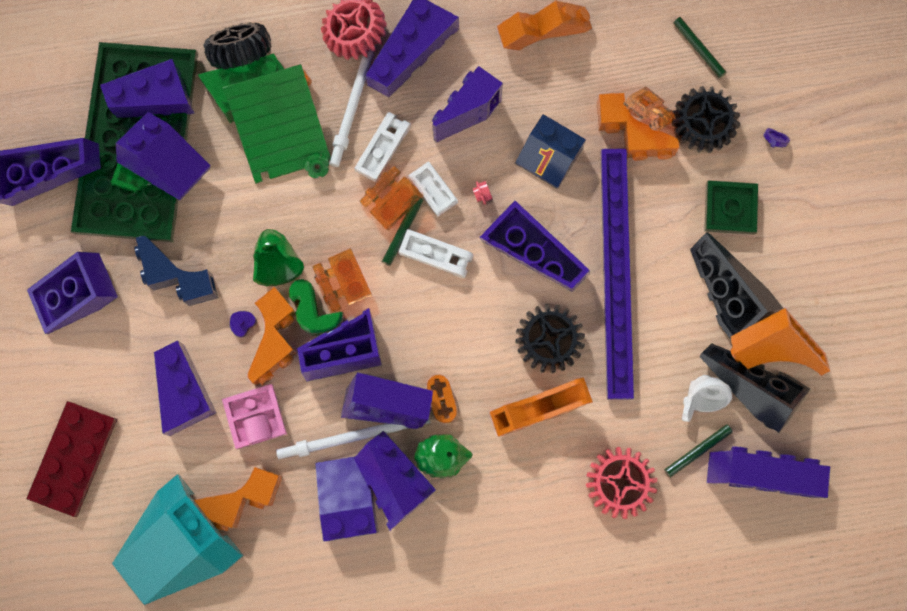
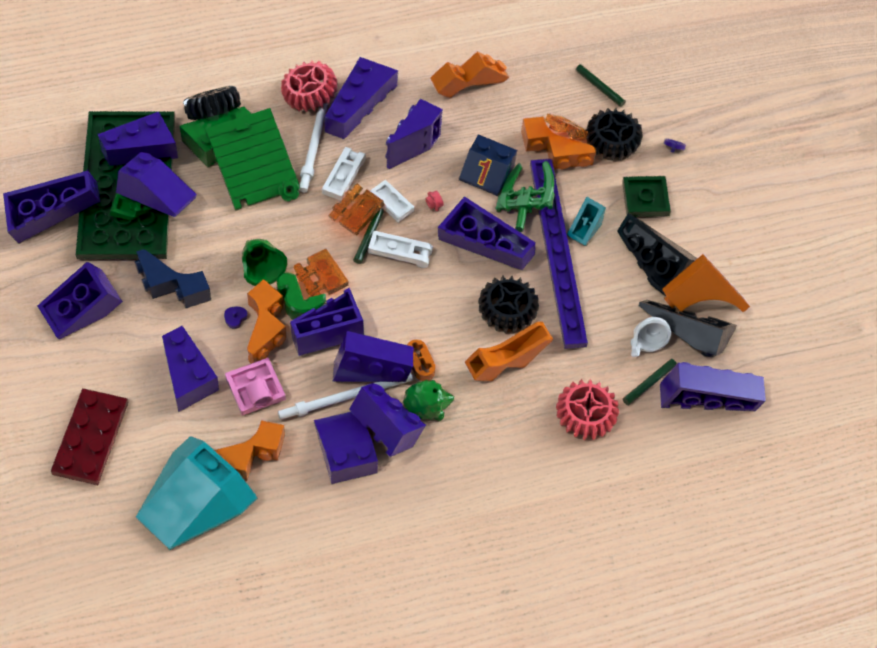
camera: 15 degrees left, 20 degrees down
(587, 206) = (525, 200): none -> green bar
(655, 238) = (587, 221): none -> teal slope

